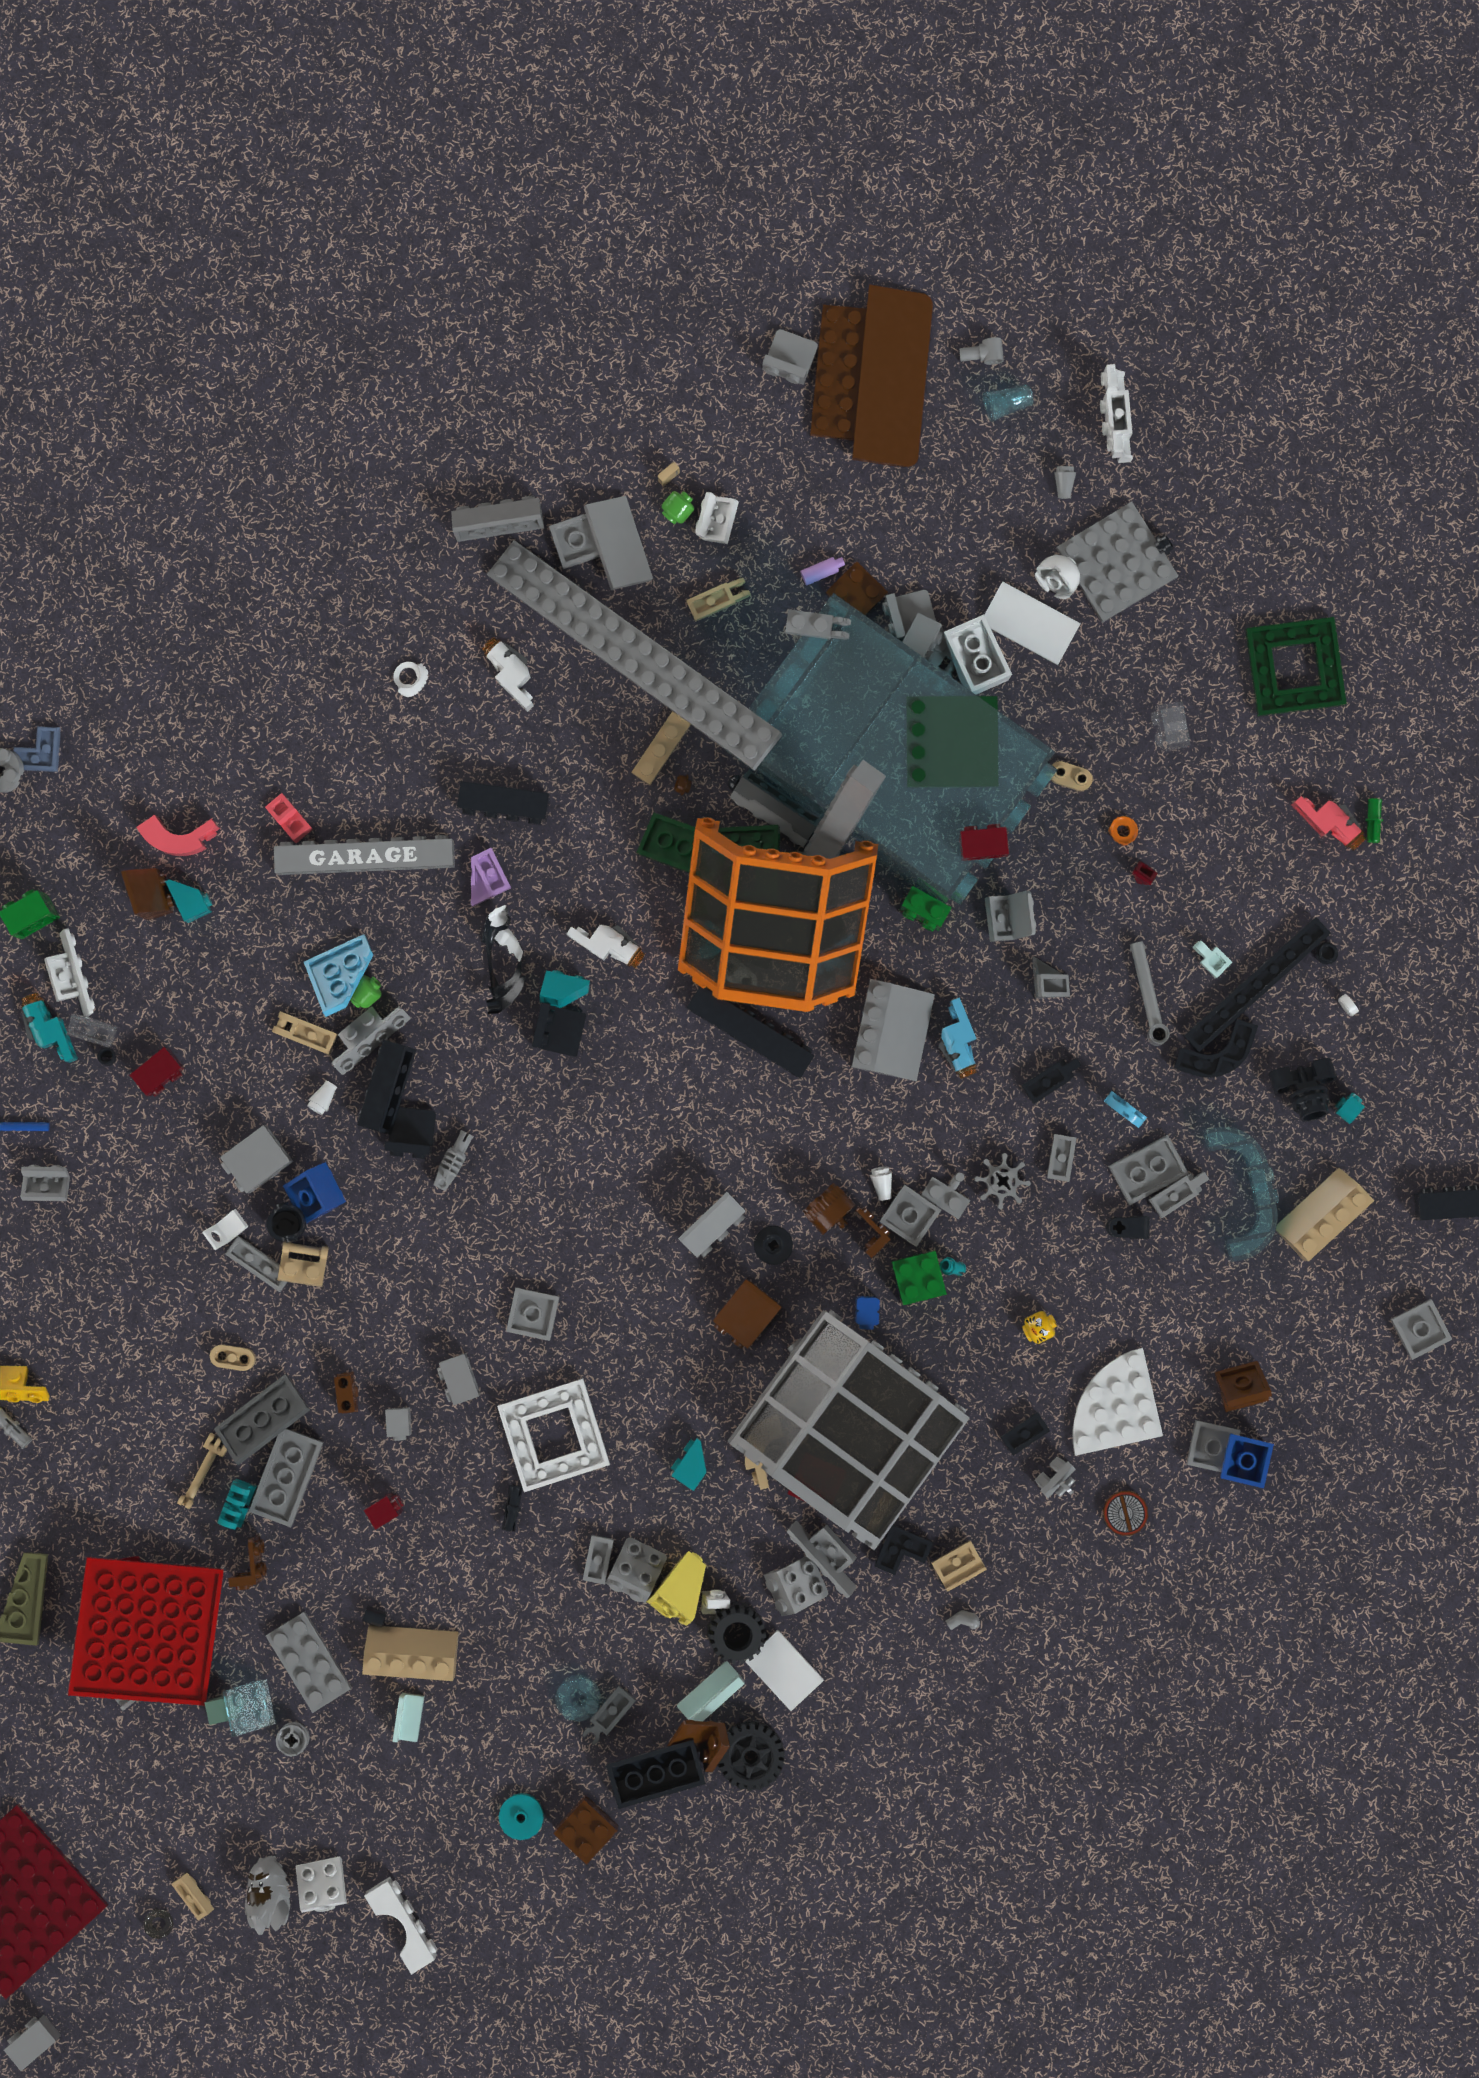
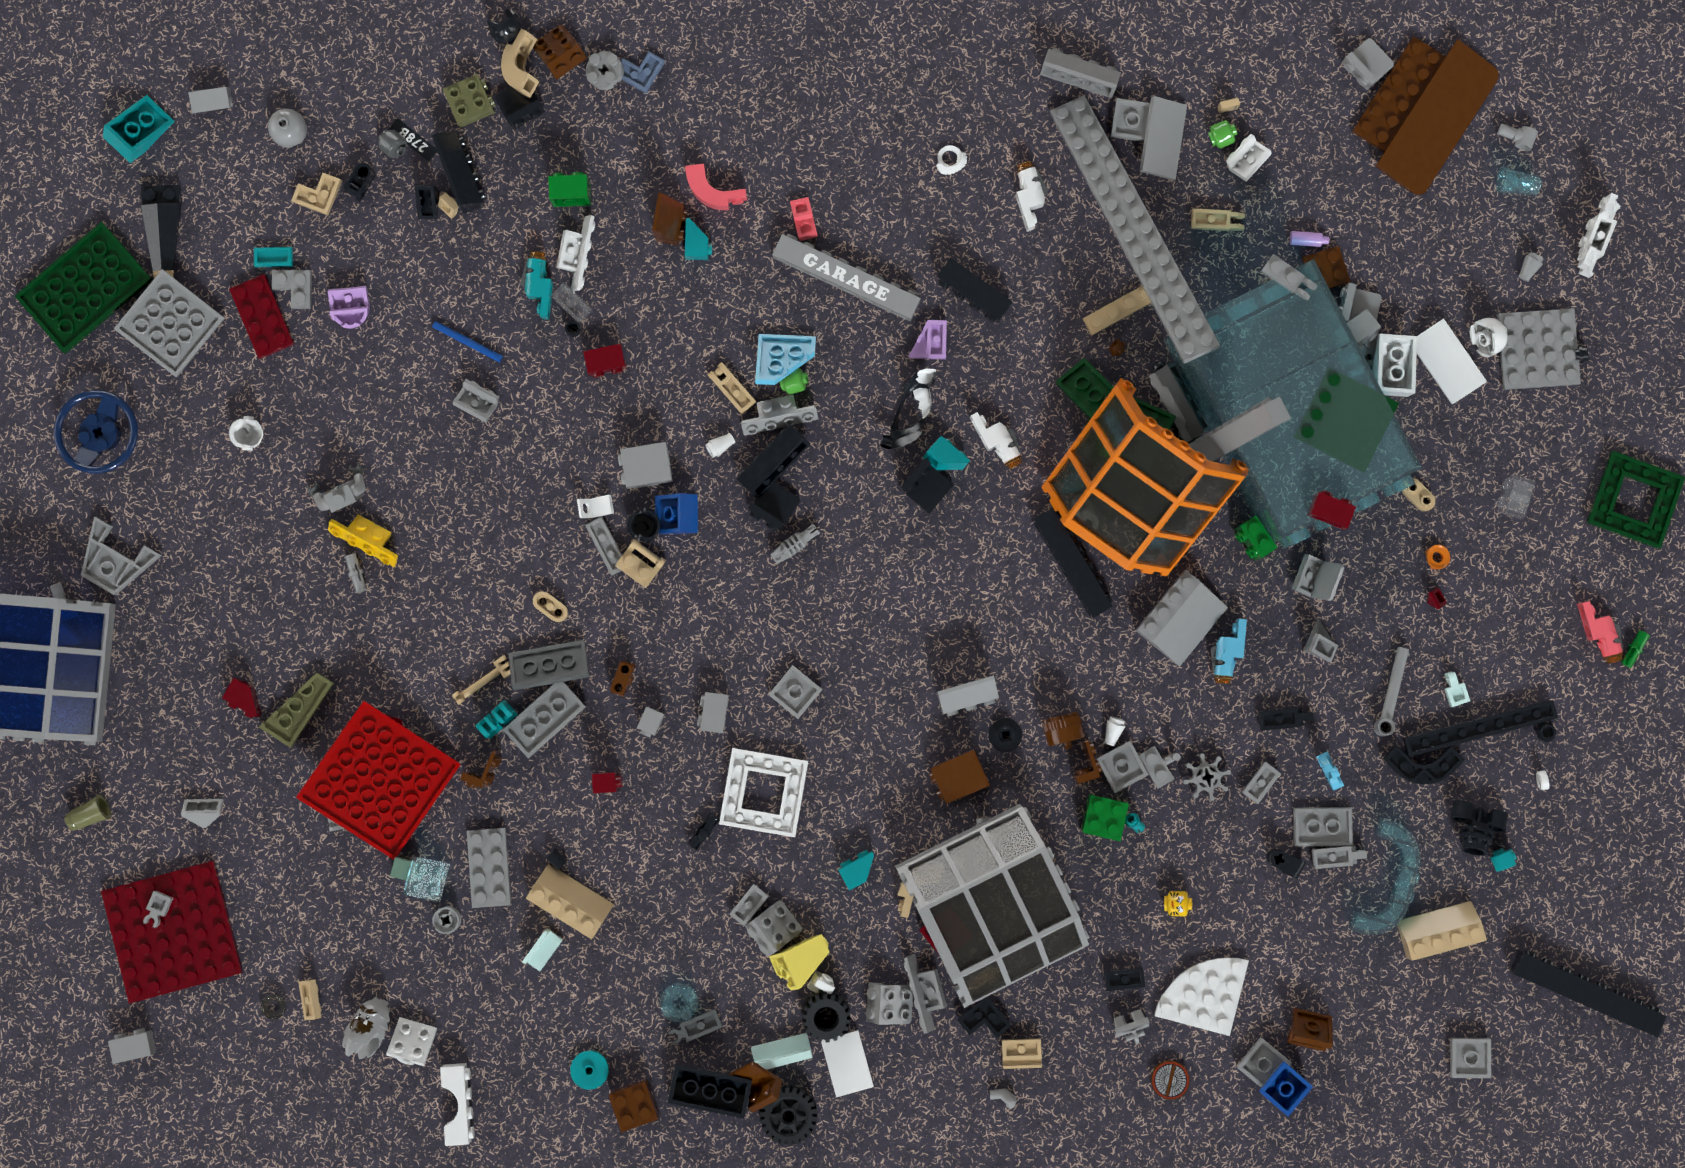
camera: 25 degrees right, 0 degrees up
(866, 1313) = (1052, 823): blue brick -> none

